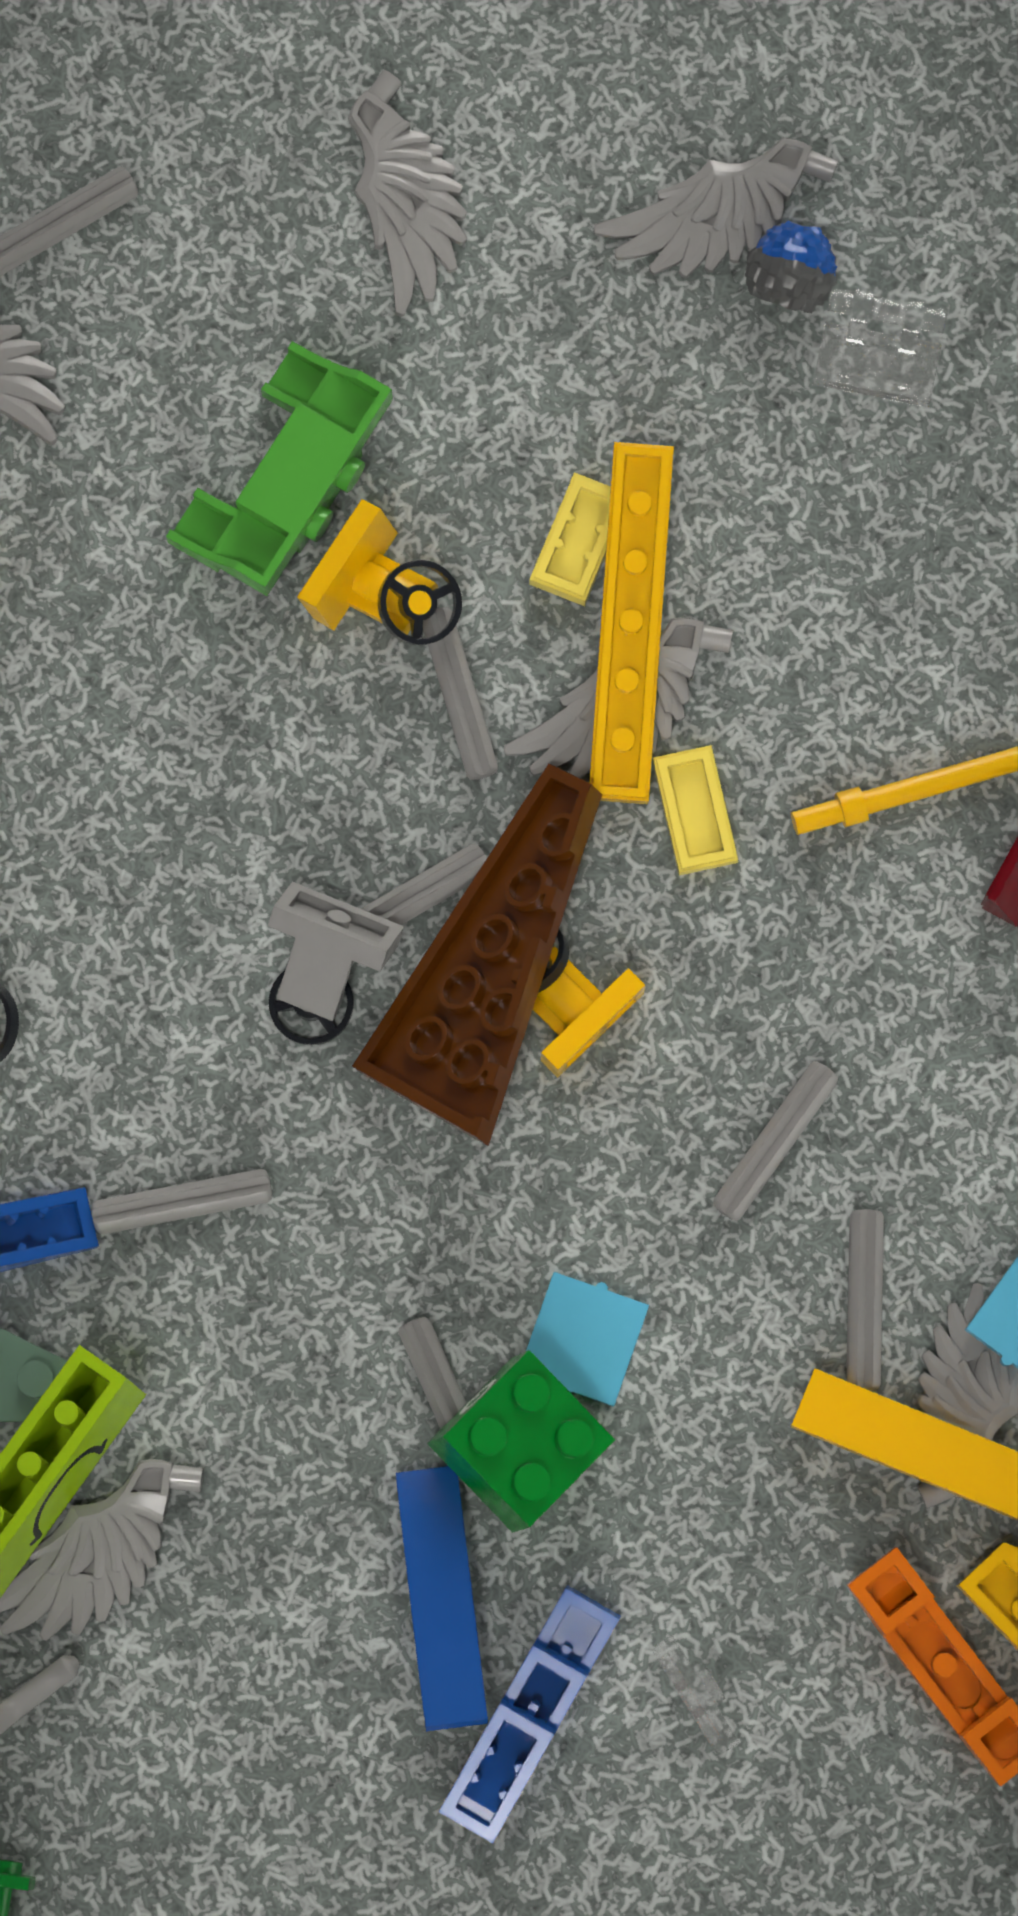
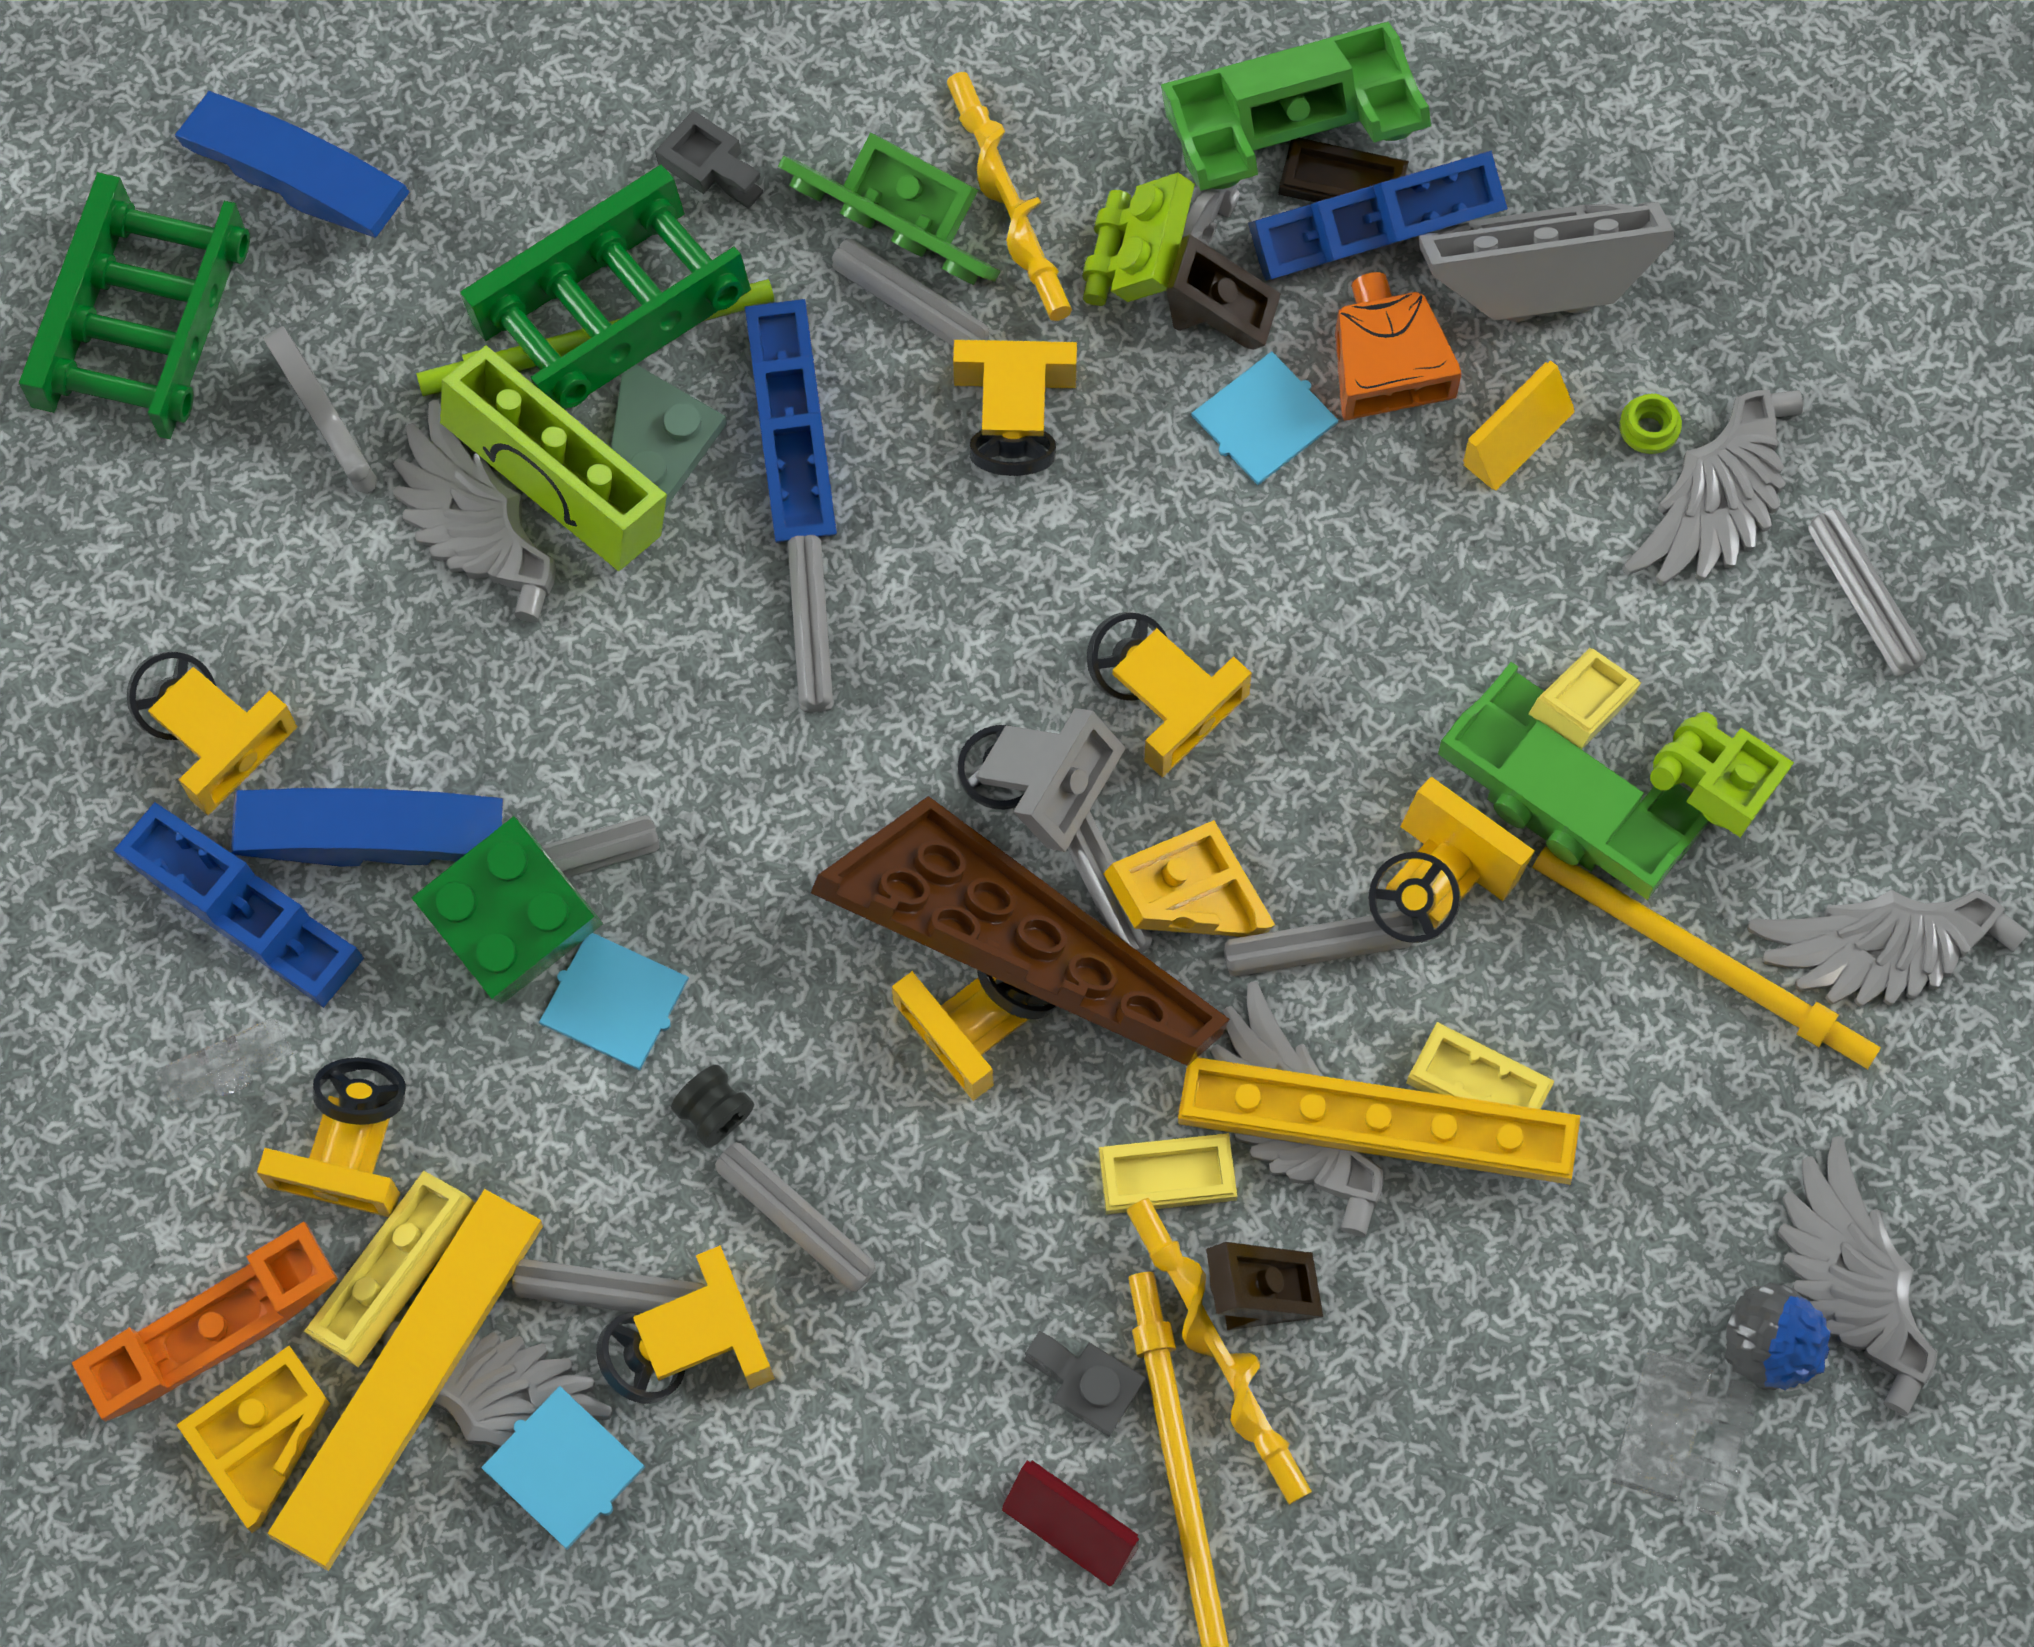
camera: 95 degrees right, 10 degrees down
(199, 465) = (1585, 698): none -> light yellow tile
(220, 853) = (1169, 685): none -> yellow piece
(272, 324) = (1727, 774): none -> lime plate
(349, 1779) = (211, 726): none -> yellow piece
(421, 812) = (1189, 887): none -> yellow wing
(488, 253) = (1815, 1023): none -> yellow bar
(683, 1227) = (712, 1105): none -> pearl dark grey wheel
(752, 1568) = (345, 1142): none -> yellow piece
(795, 712) = (1262, 1285): none -> dark brown slope
(866, 731) = (1203, 1338): none -> yellow piece
(871, 1505) = (390, 1269): none -> light yellow tile
(899, 859) = (1092, 1386): none -> dark grey plate
(906, 1219) = (685, 1335): none -> yellow piece

